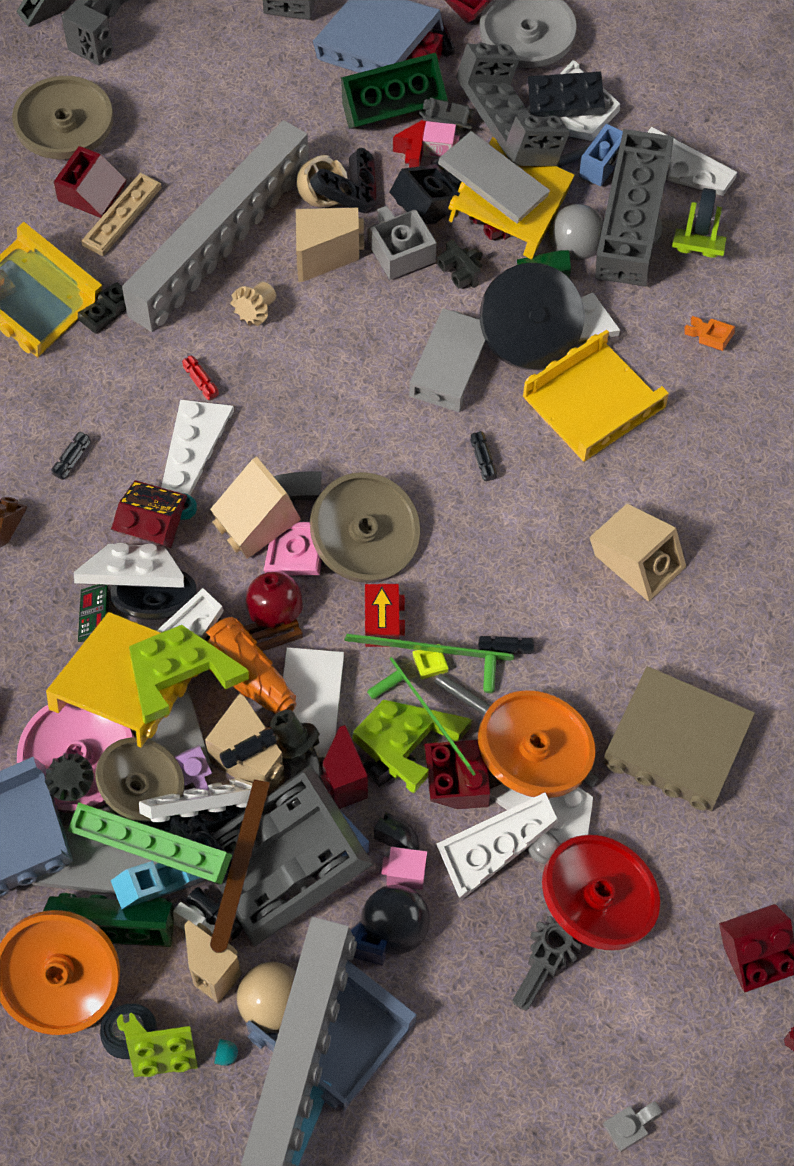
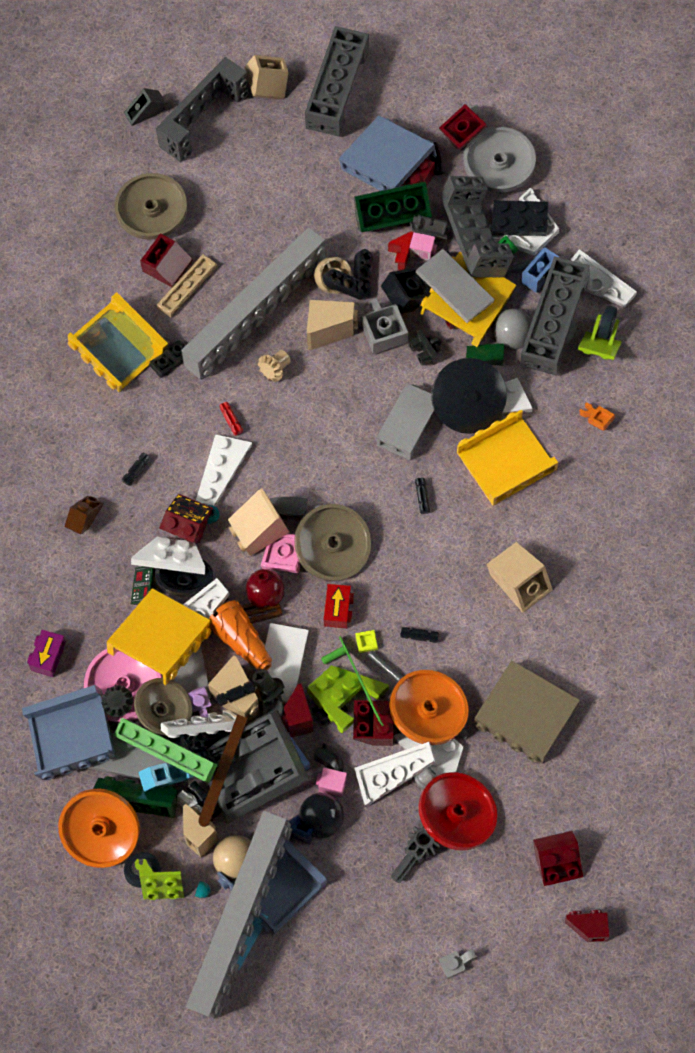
camera: 10 degrees right, 5 degrees up
(174, 658) = (193, 626): lime wing -> none
(490, 657) = (406, 646): bright green piece -> none

